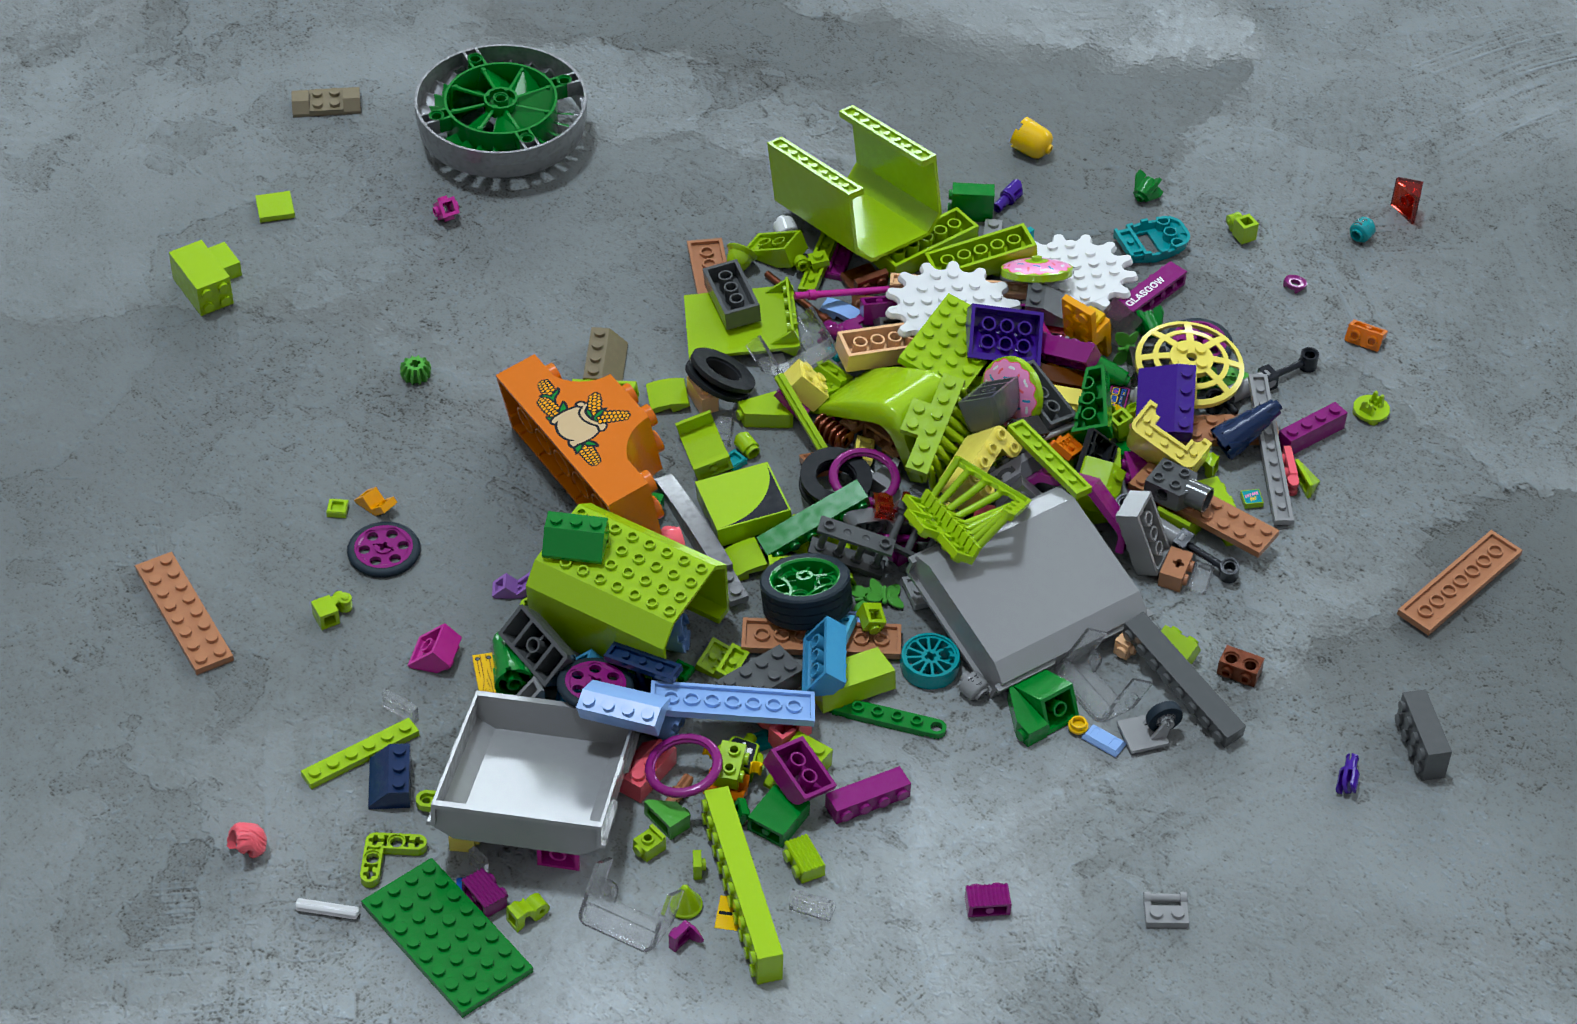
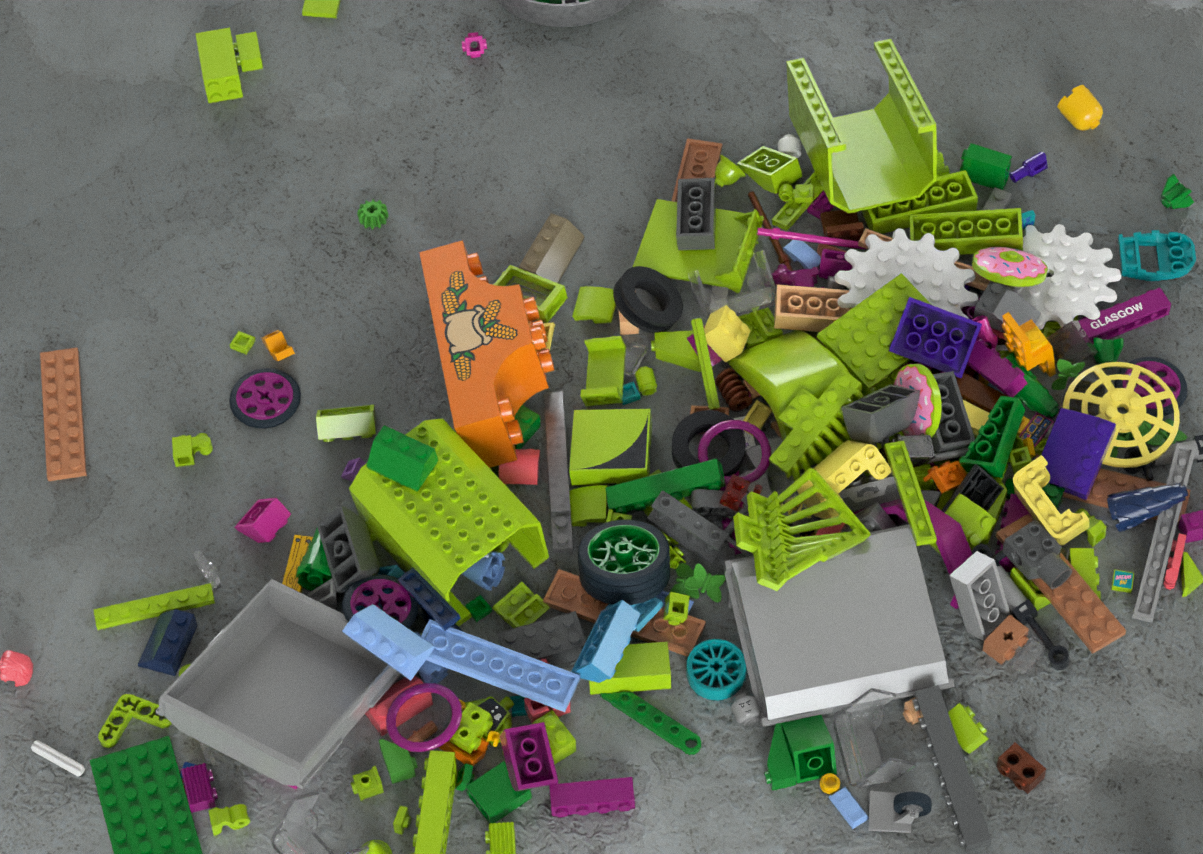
camera: 25 degrees right, 10 degrees up
(477, 549) = (346, 423): none -> slope

